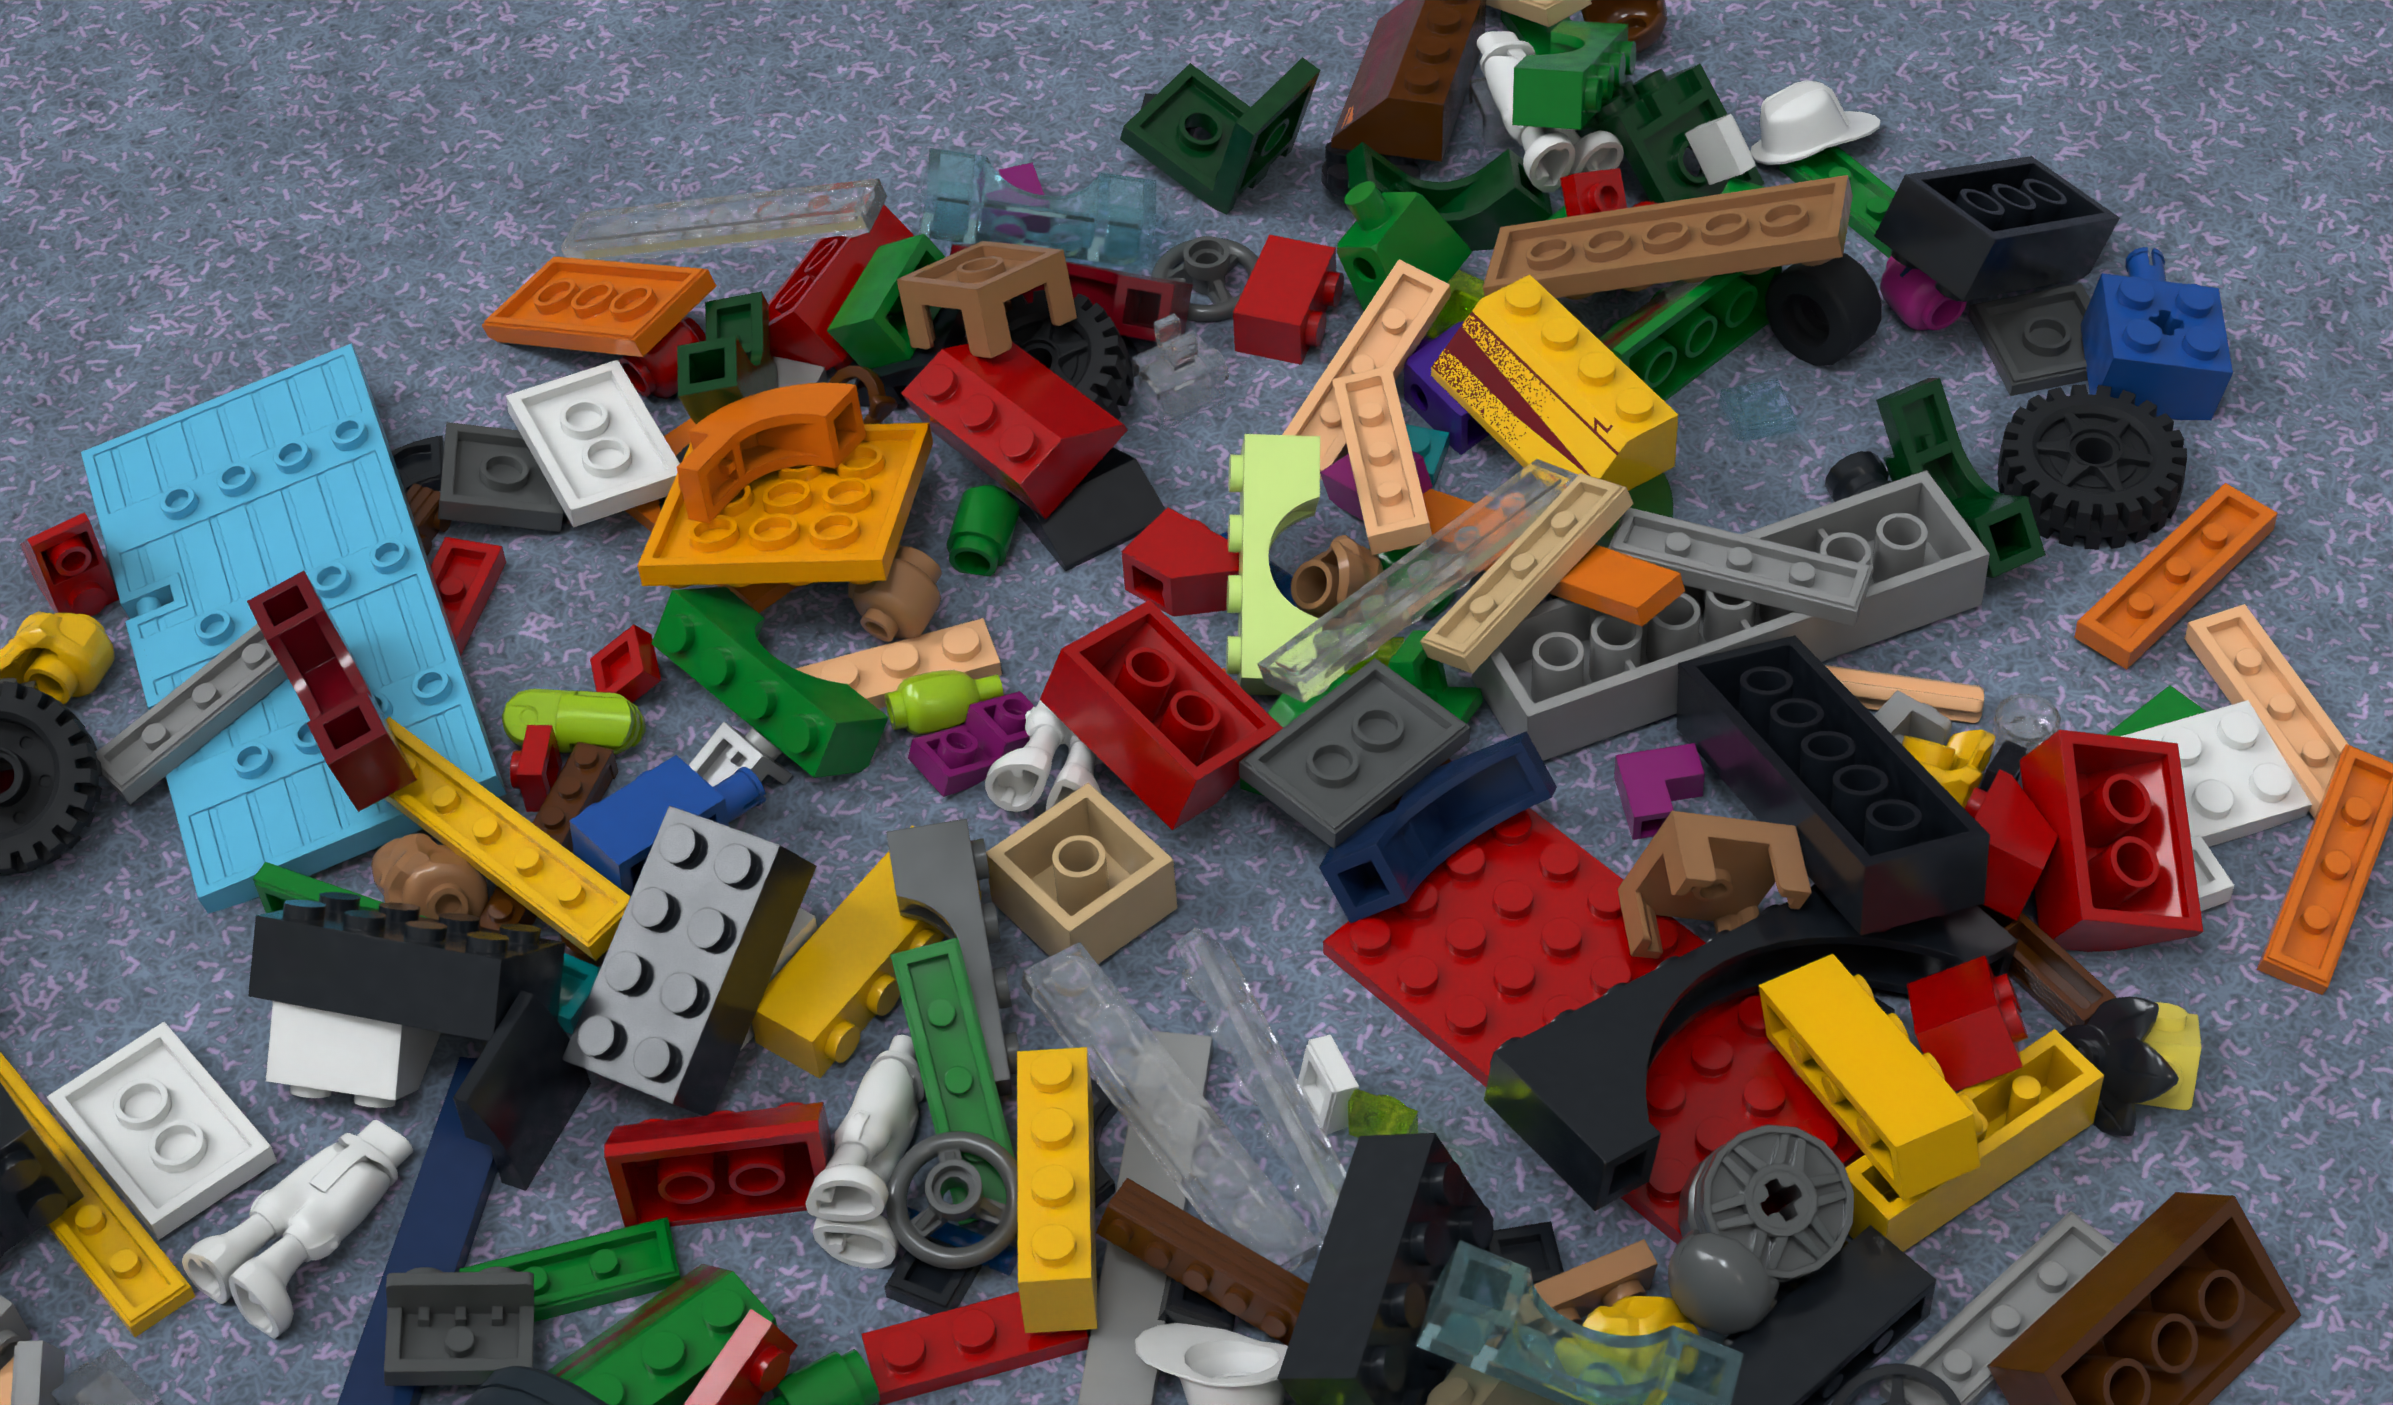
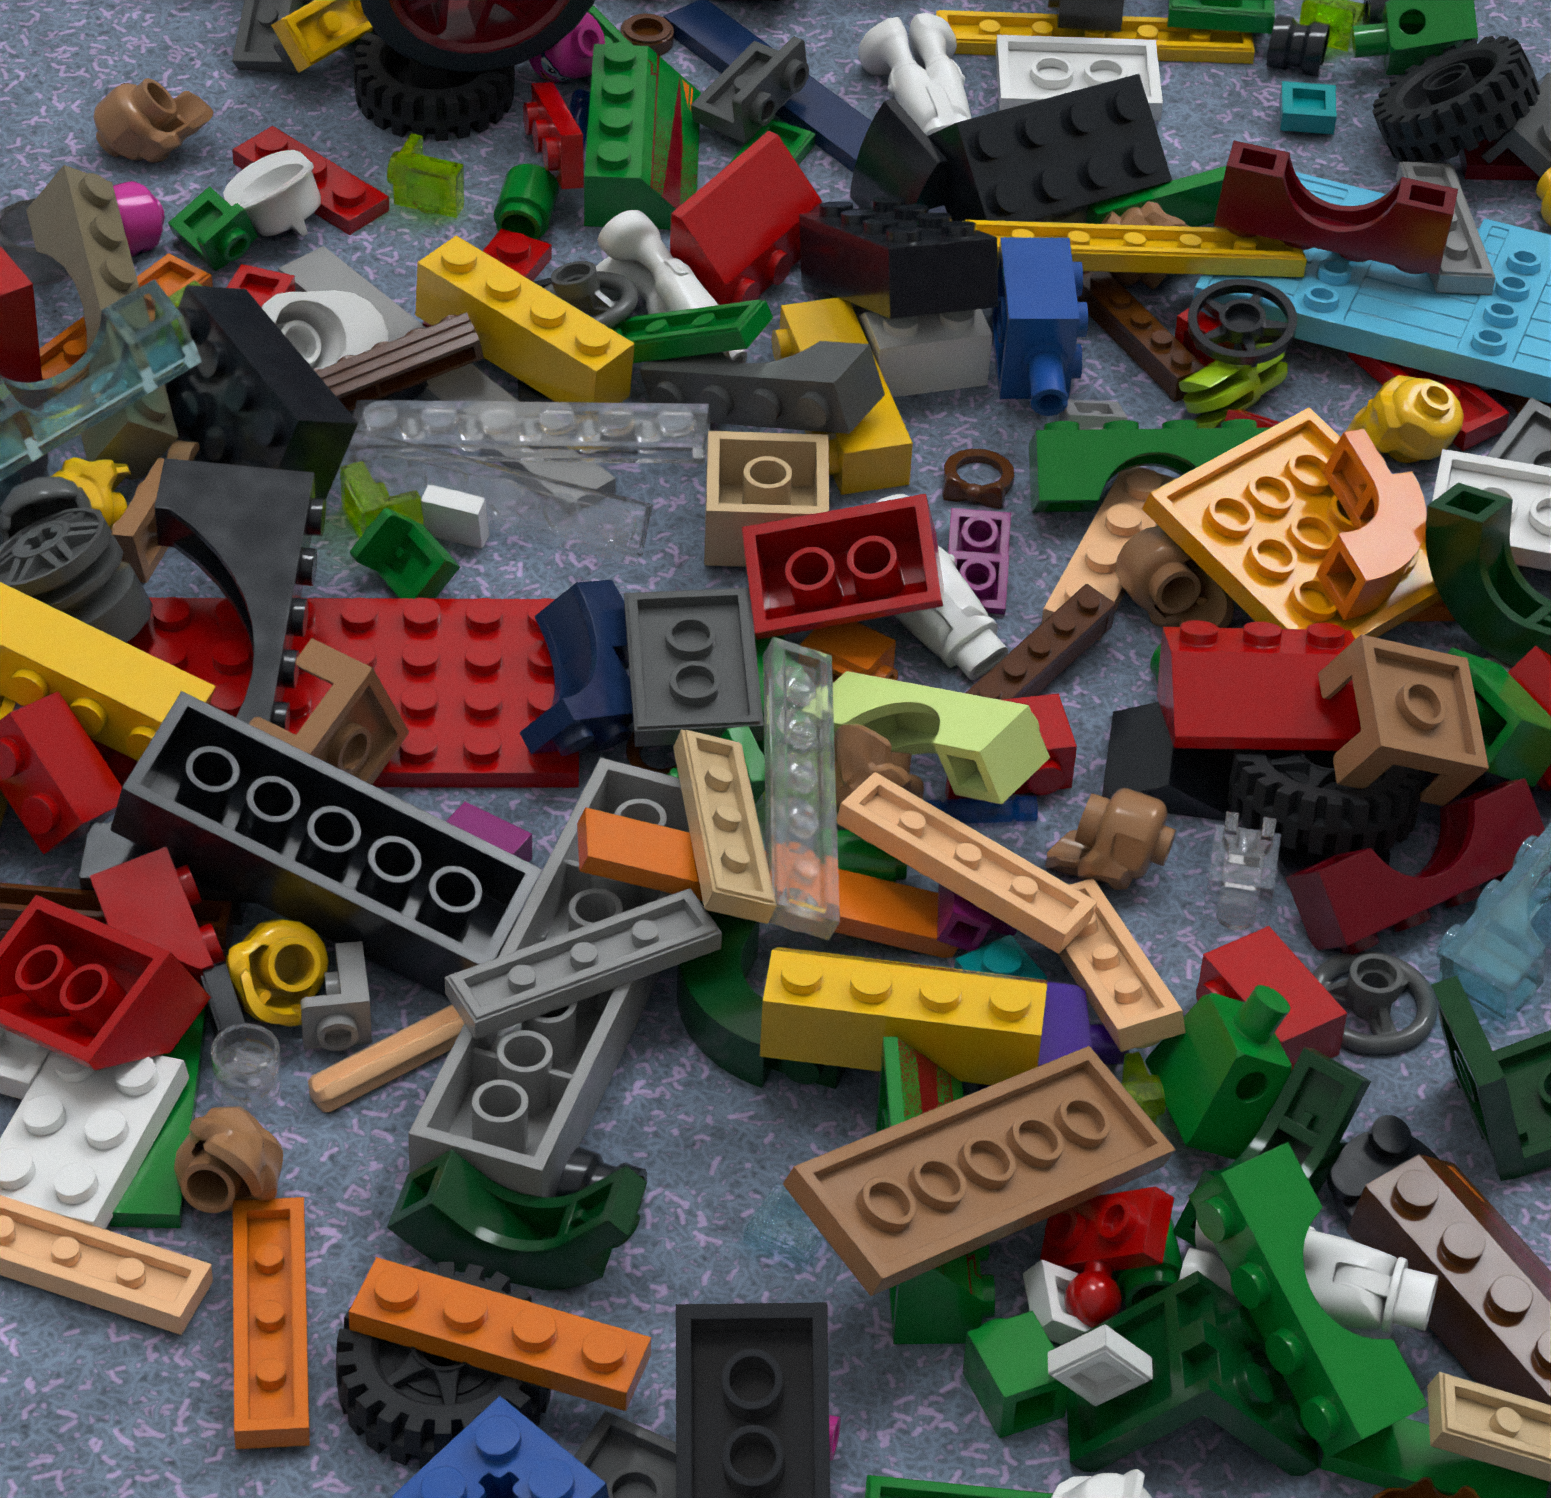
camera: 125 degrees right, 5 degrees down
(58, 931) = (1307, 107): none -> teal plate
(524, 709) = (1242, 322): none -> black wheel
(529, 583) = (1411, 419): none -> yellow head
(882, 795) = (990, 494): none -> reddish brown piece
(937, 700) = (1040, 555): lime plant -> none
(1075, 611) = (1049, 647): none -> reddish brown piece
(1212, 432) = (1115, 839): none -> medium nougat head
(1418, 1068) = (405, 556): none -> green bracket
(1823, 309) = (860, 1326): black tyre -> none
(2059, 419) = (500, 1333): none -> orange plate
(2116, 658) = (227, 1155): none -> medium nougat head

